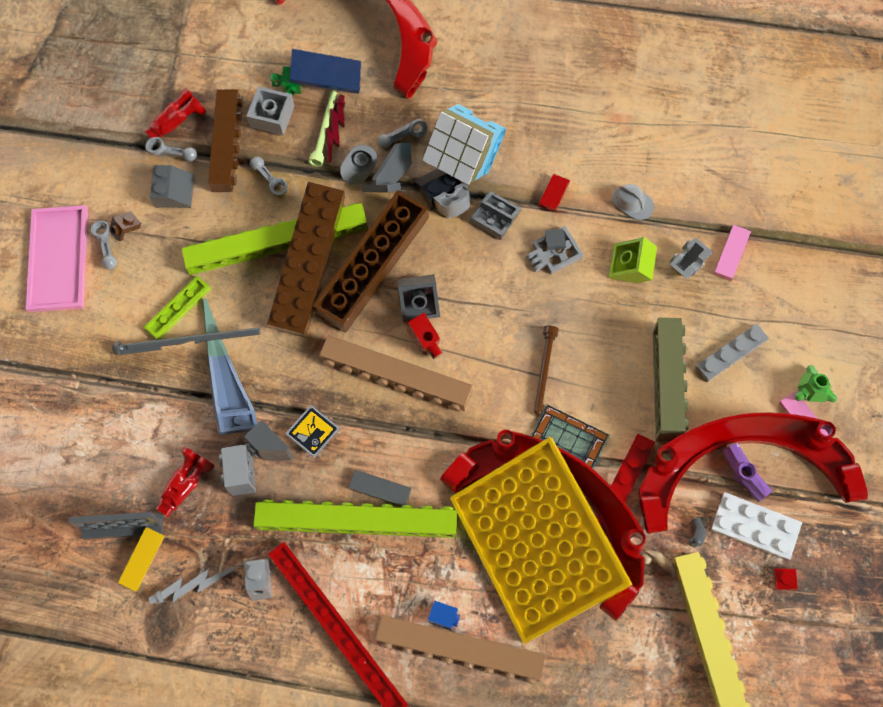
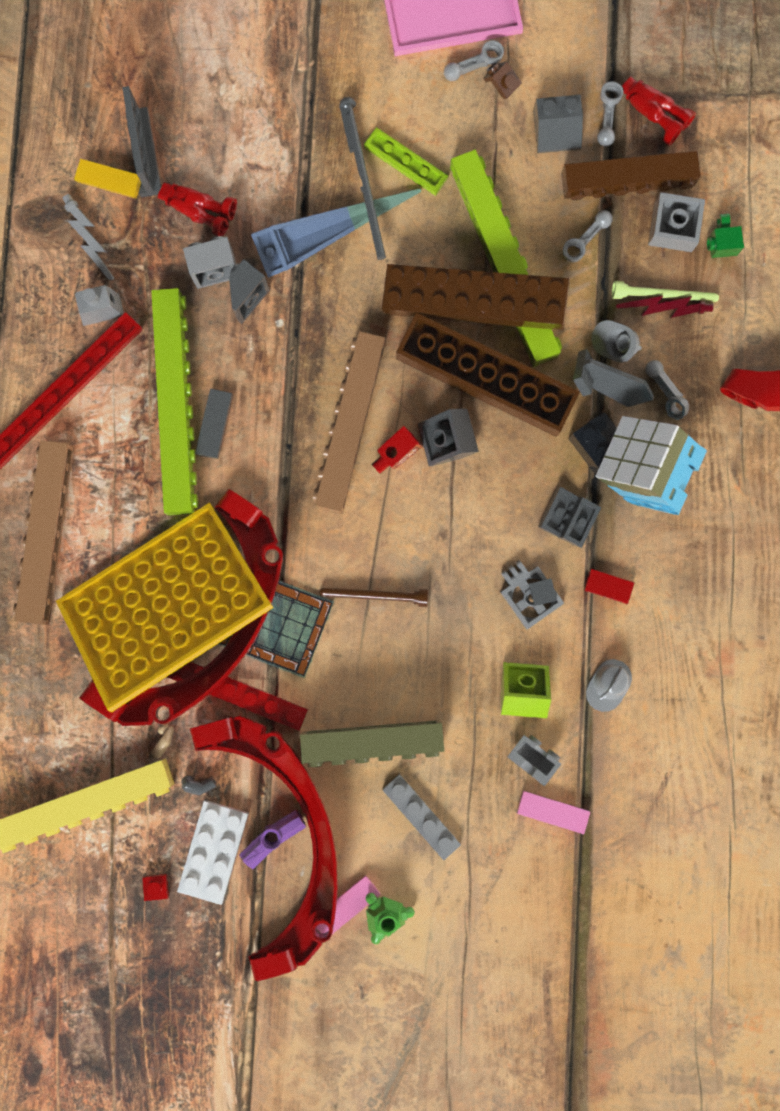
camera: 80 degrees right, 15 degrees up
(312, 431) = (270, 338): piece -> none
(325, 71) = (742, 280): dark blue tile -> none
(444, 615) = (77, 511): blue brick -> none
(455, 203) = (575, 465): light grey cylinder -> none

